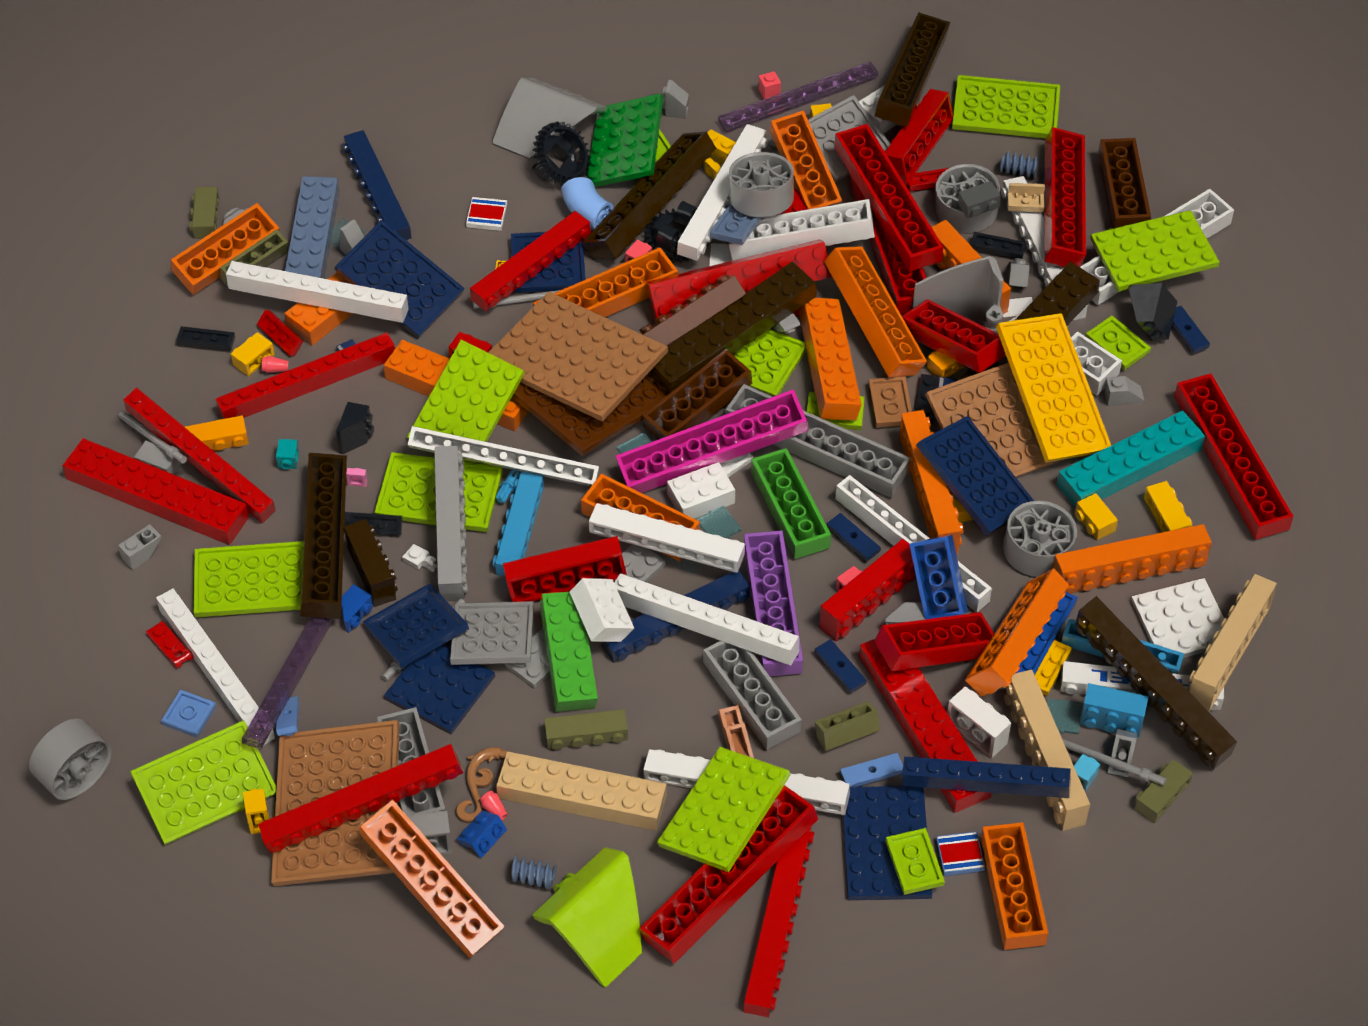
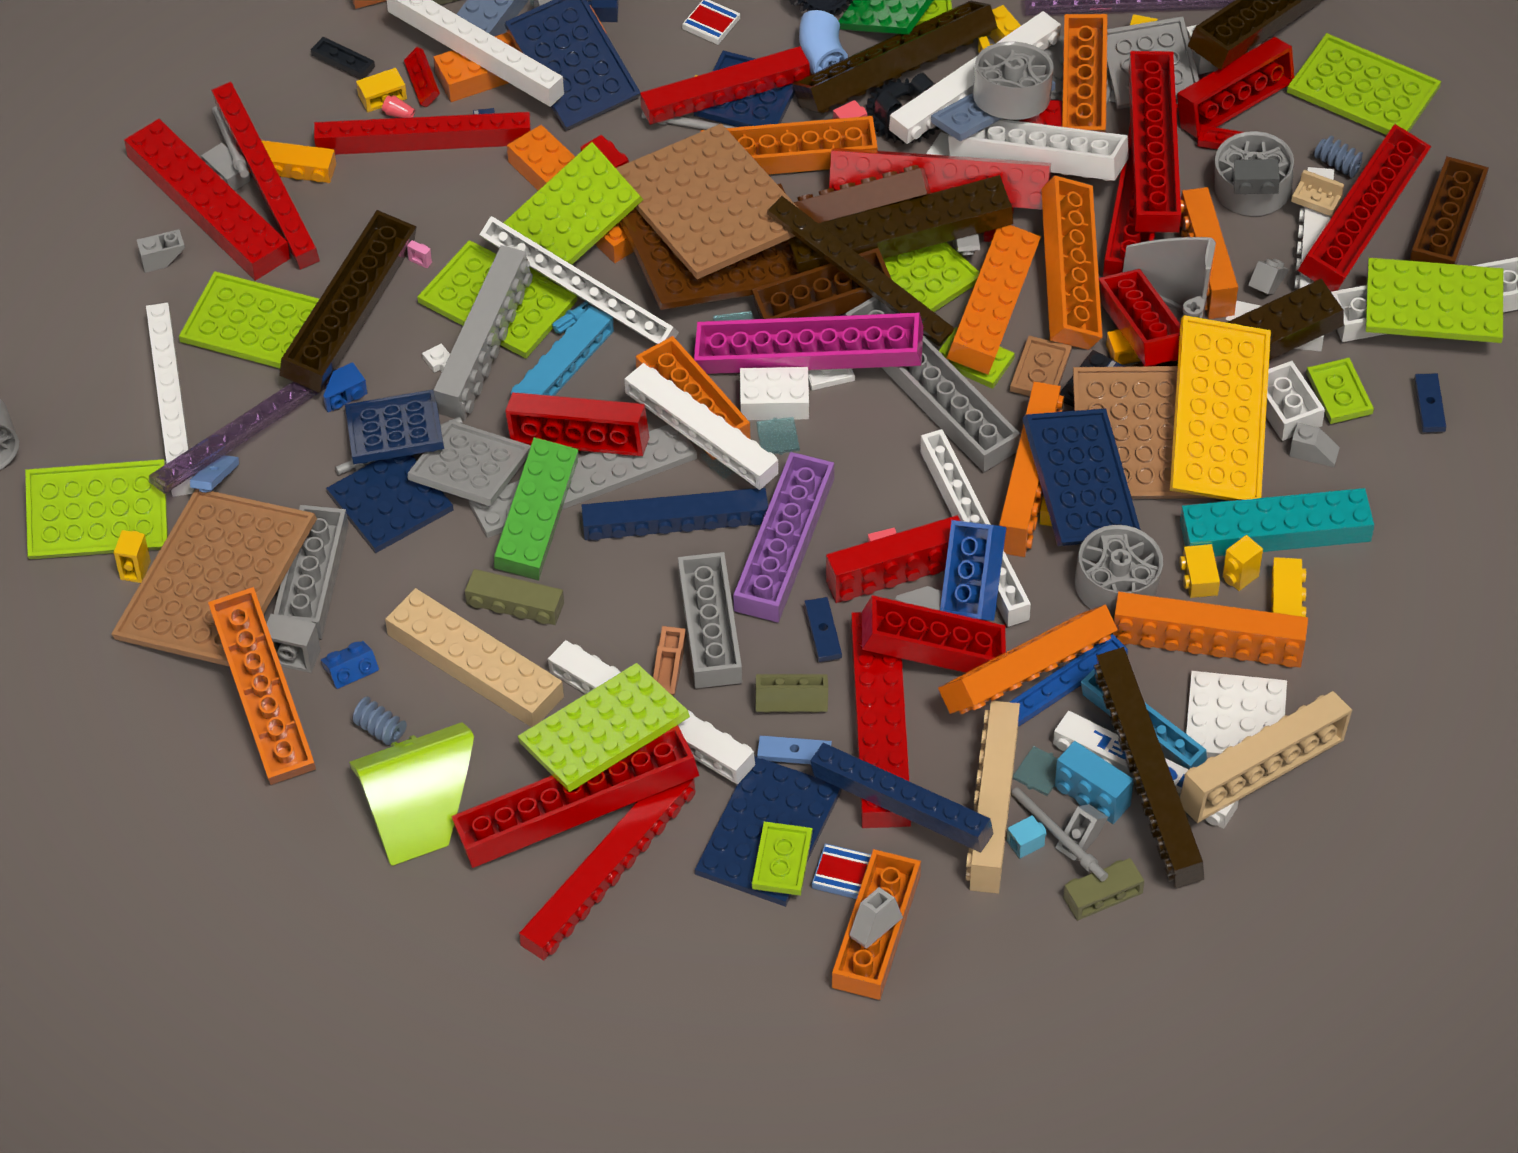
camera: 25 degrees right, 0 degrees up
(169, 644) = (139, 360): red plate -> none
(188, 713) = (122, 436): medium blue tile -> none
(287, 454) = (361, 206): teal brick -> none
(354, 427) = (441, 200): black slope -> none
(360, 798) = (225, 578): red brick -> none
(371, 562) = (383, 346): dark brown brick -> none
(381, 522) = (410, 307): black plate -> none
(482, 782) = (397, 585): medium nougat plant -> none
(491, 803) = (376, 639): coral cone -> none
(601, 610) = (587, 476): white brick -> none
(708, 620) = (695, 526): white brick -> none
(719, 369) = (857, 268): none -> dark brown plate
(790, 503) = (864, 438): bright green brick -> none
(853, 537) = (914, 497): dark blue tile -> none
(979, 722) = (936, 740): white brick -> none
(998, 245) = (1263, 238): black plate -> none
(1019, 881) = (875, 917): none -> light grey slope
(1052, 666) = (1050, 715): yellow plate -> none
(1126, 499) = (1242, 563): none -> yellow brick
(1153, 309) = (1396, 366): black slope -> none
(1234, 457) = (1397, 560): red brick -> none

